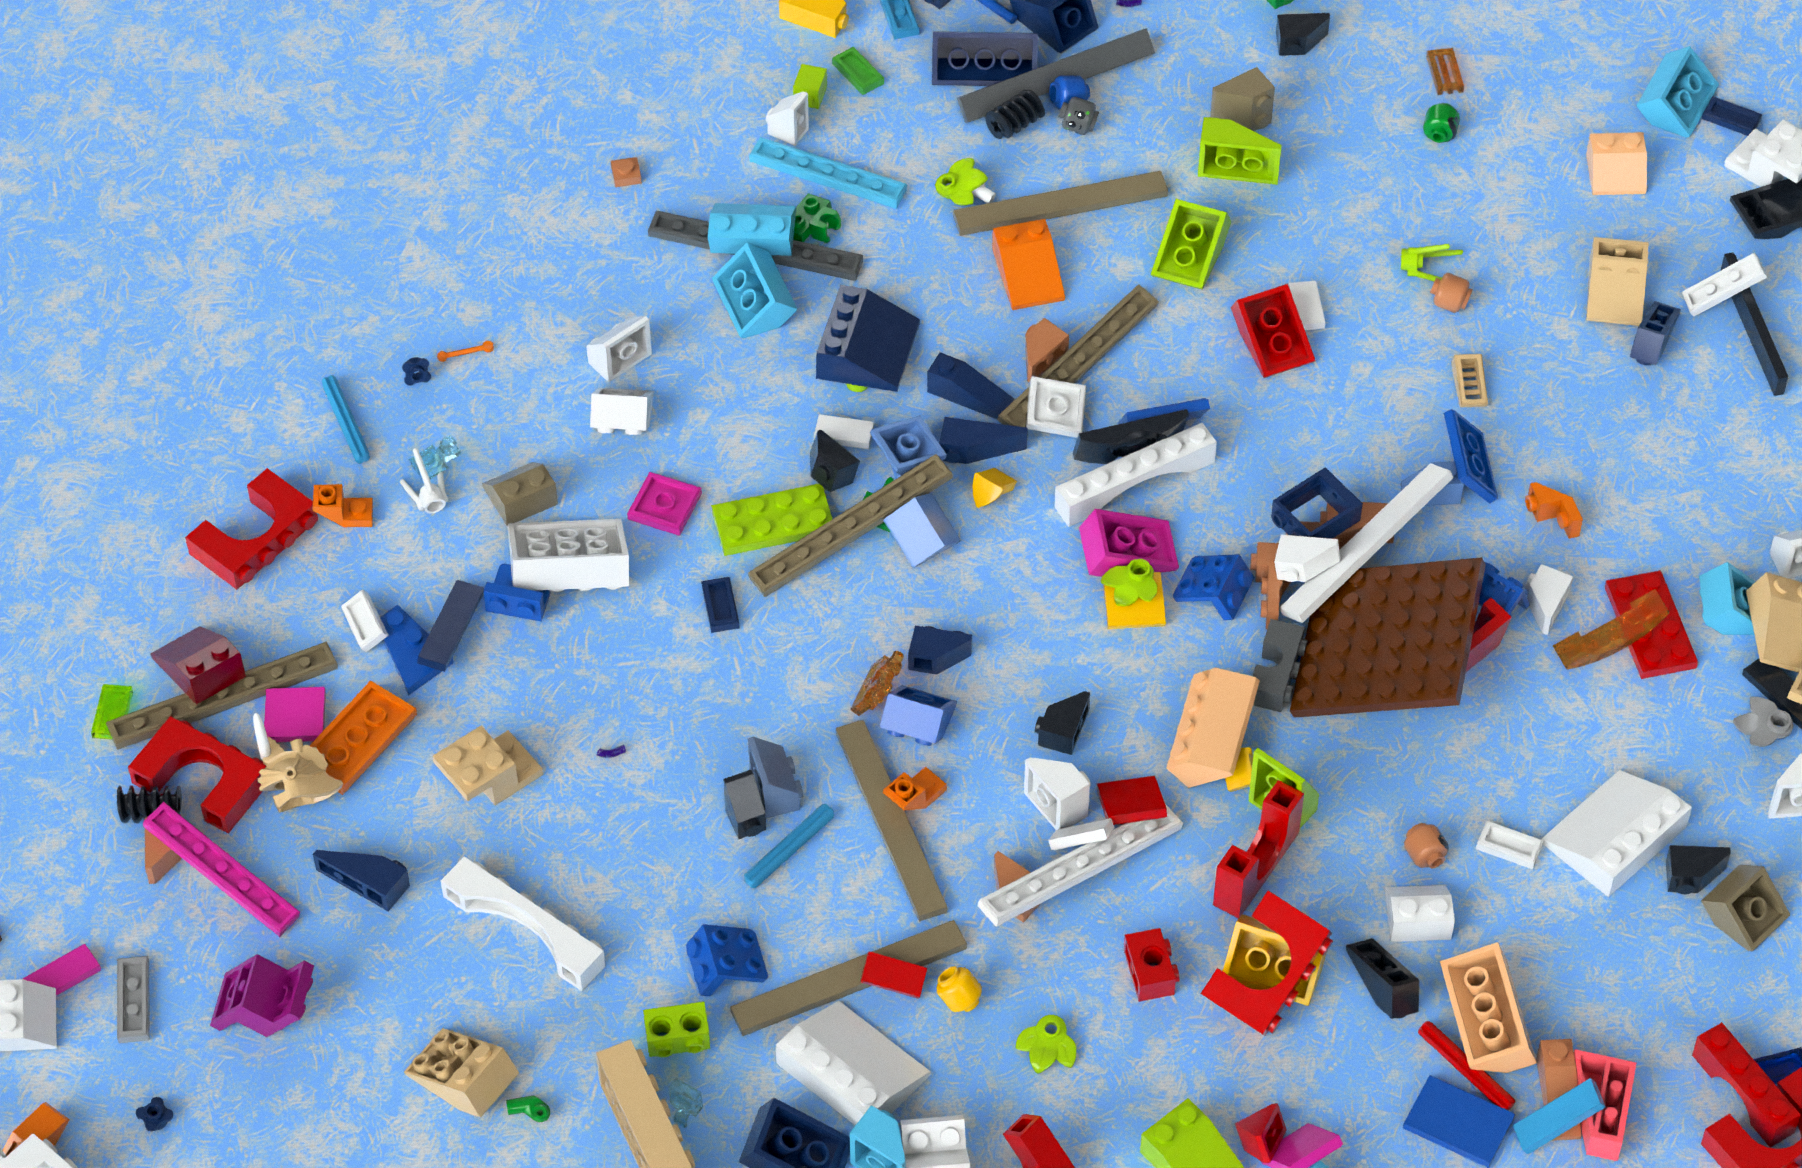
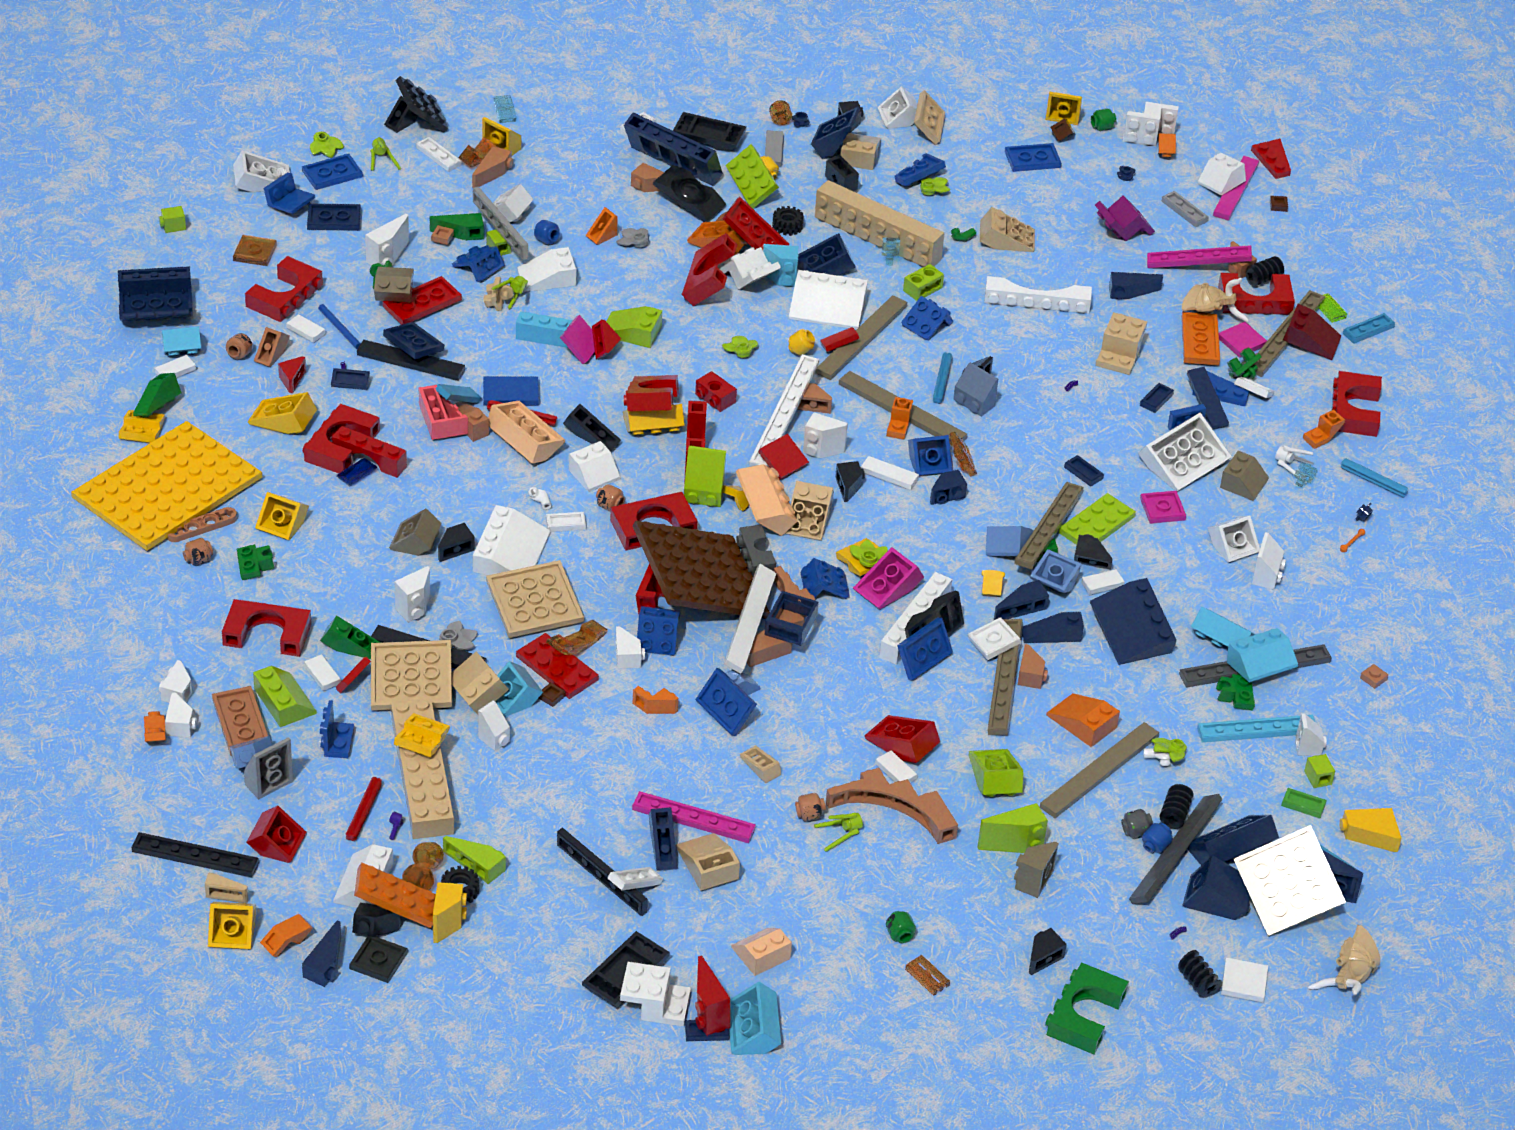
camera: 145 degrees right, 10 degrees down
(95, 652) = (1368, 328): none -> dark azure tile
(347, 650) = (1249, 359): none -> green hips
(510, 674) = (1156, 398): none -> dark blue tile
(994, 719) = (890, 473): none -> white tile
(1081, 834) = (793, 425): white tile -> none
(1151, 700) = (812, 509): none -> tan slope
(1304, 557) = (778, 582): white slope -> none
(1334, 264) = (874, 789): none -> nougat arch
(1418, 802) = (669, 507): none -> red arch
(1522, 900) = (540, 496): none -> white arm
(1596, 353) = (697, 817): none -> dark pink tile
(1631, 724) = (534, 599): none -> tan plate
(1682, 586) = (552, 694): none -> reddish brown tile
(1724, 110) = (712, 1001): none -> red slope

